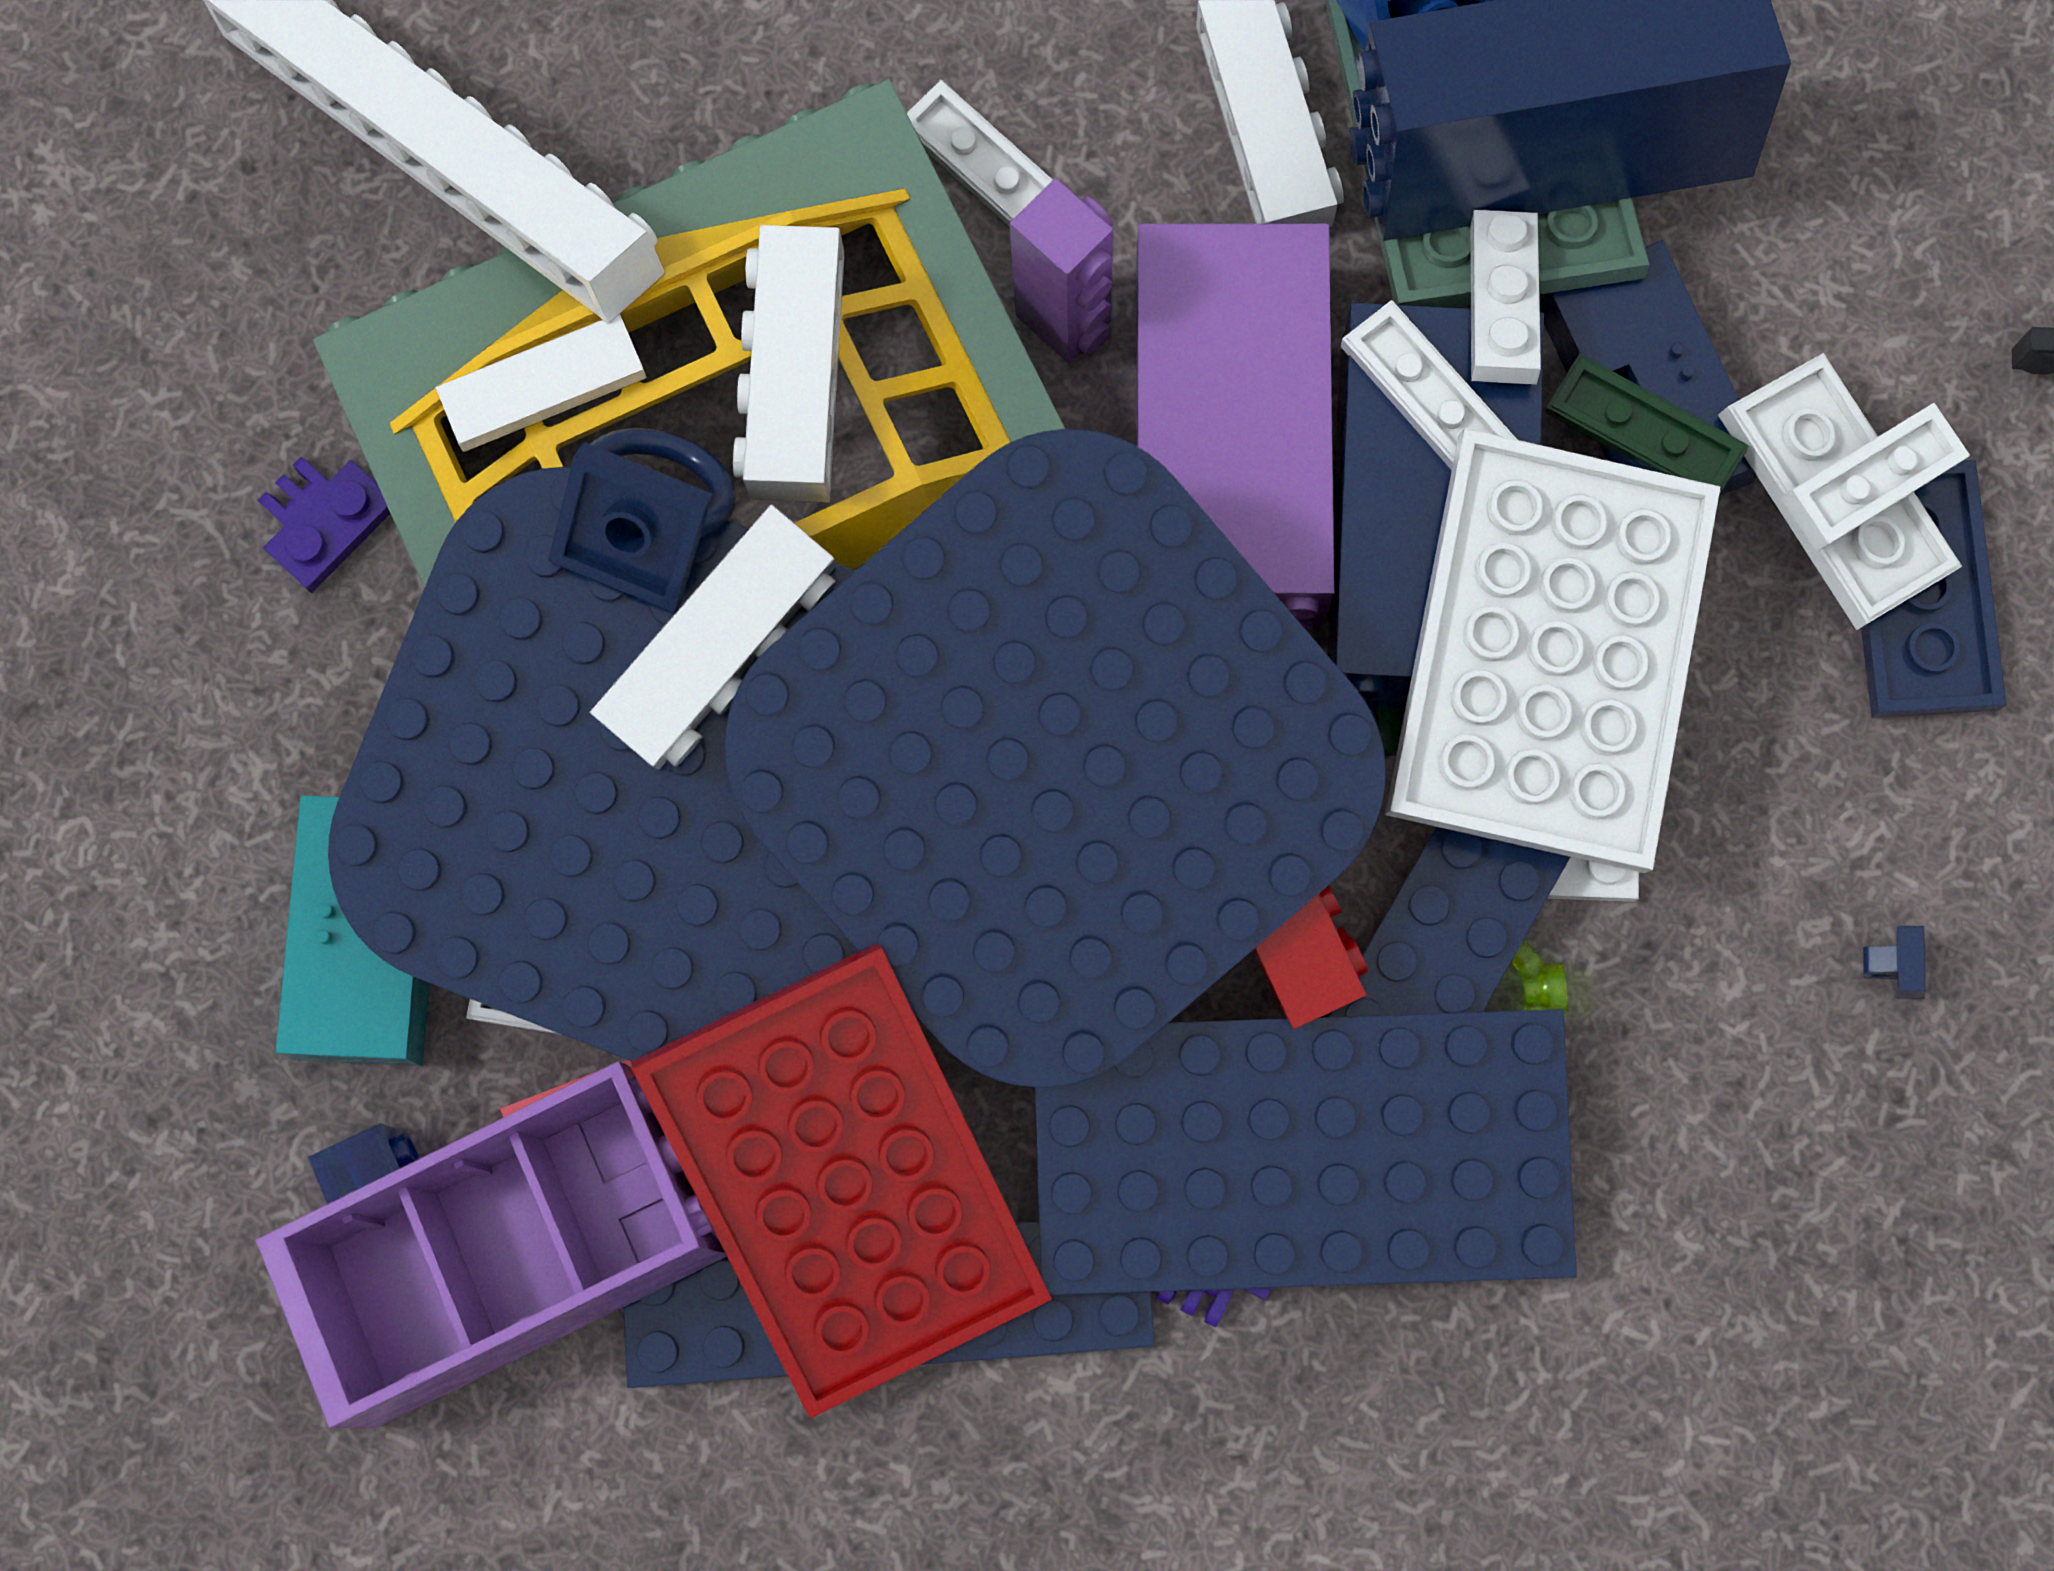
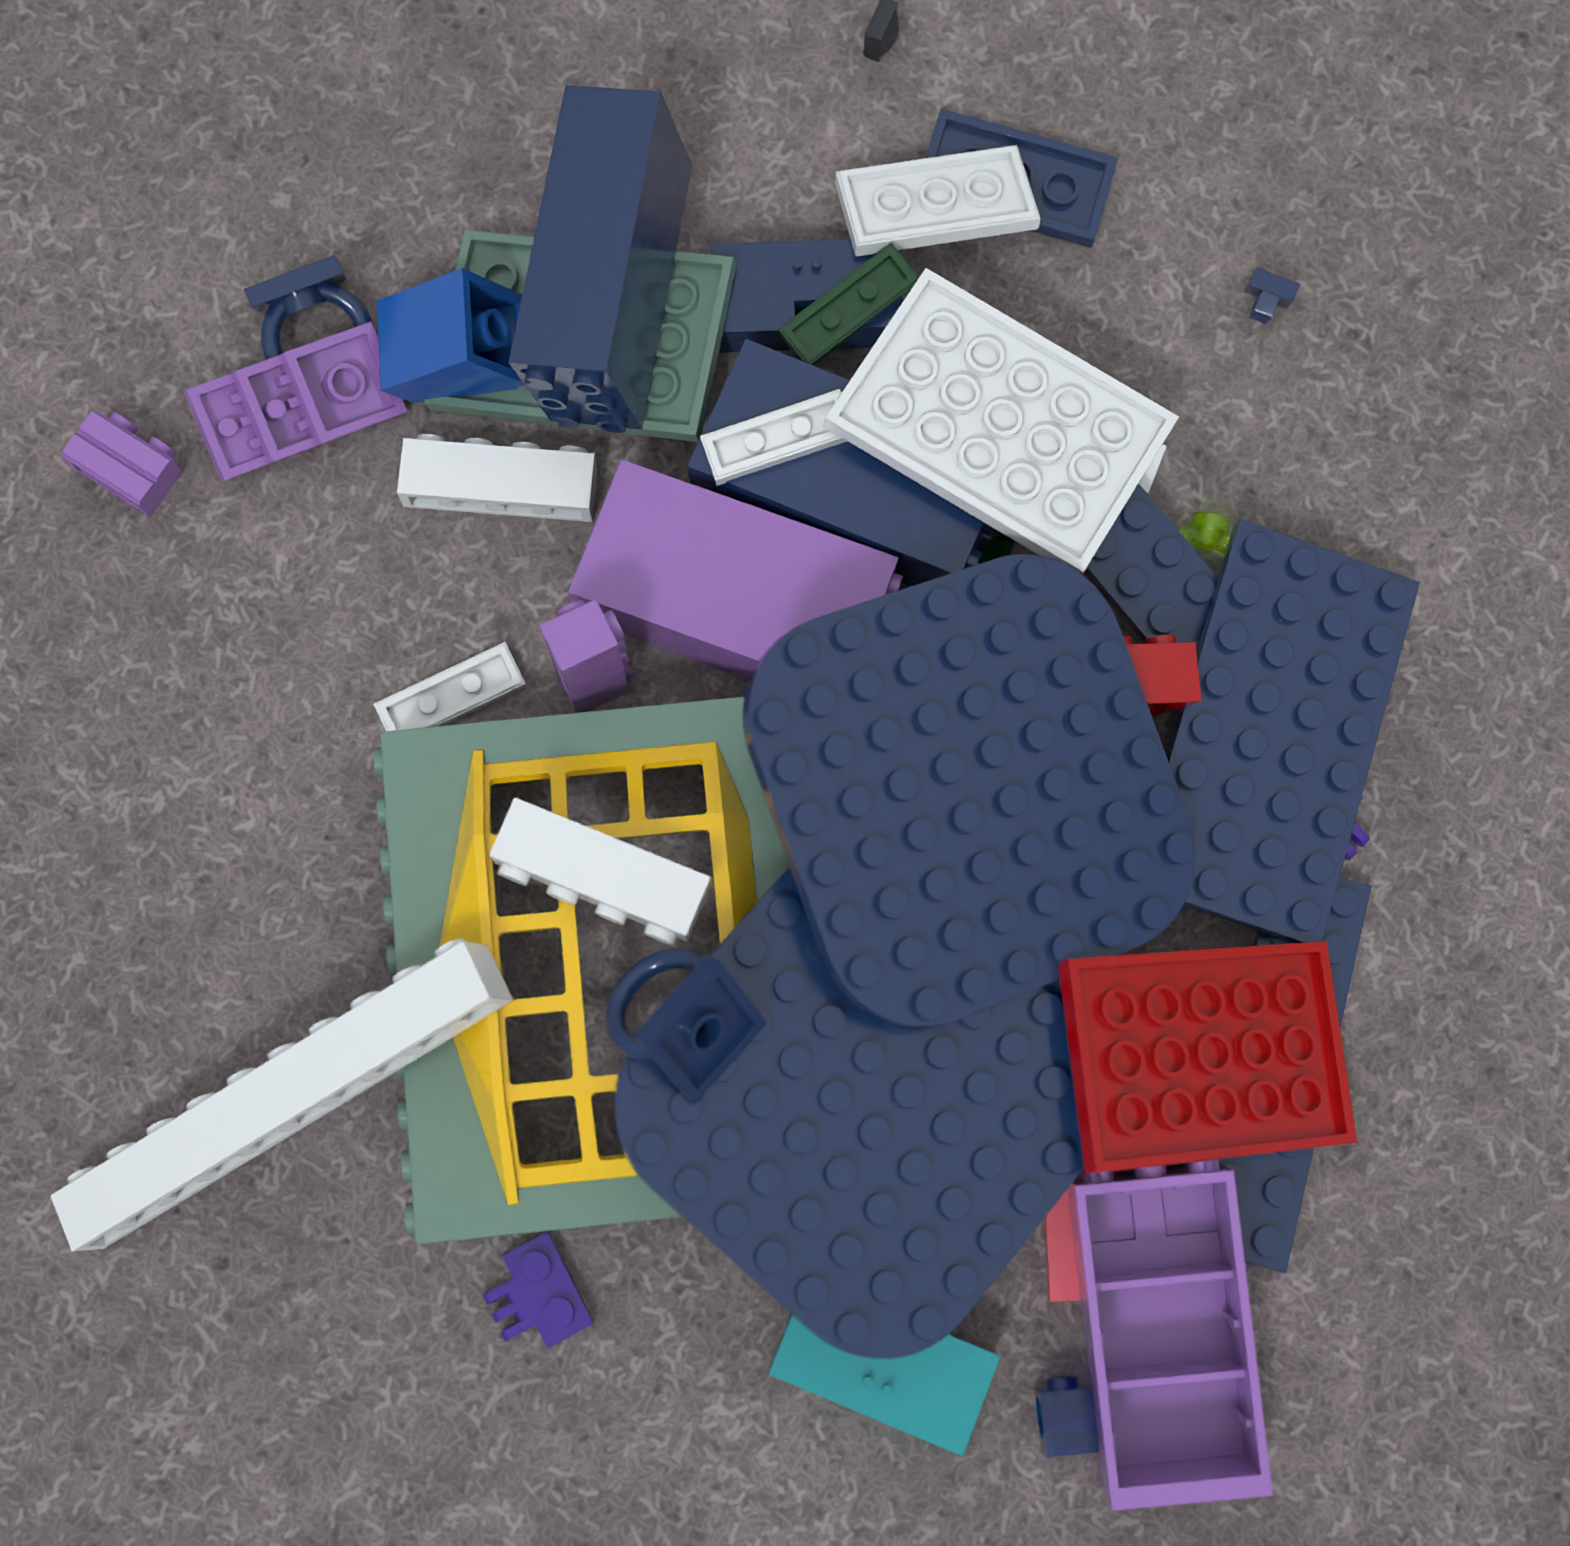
camera: 80 degrees left, 0 degrees up
(540, 382) = (538, 1069): white tile -> none
(715, 639) = (802, 998): white brick -> none
(1505, 297) = (726, 359): white plate -> none
(1875, 477) = (943, 171): white plate -> none

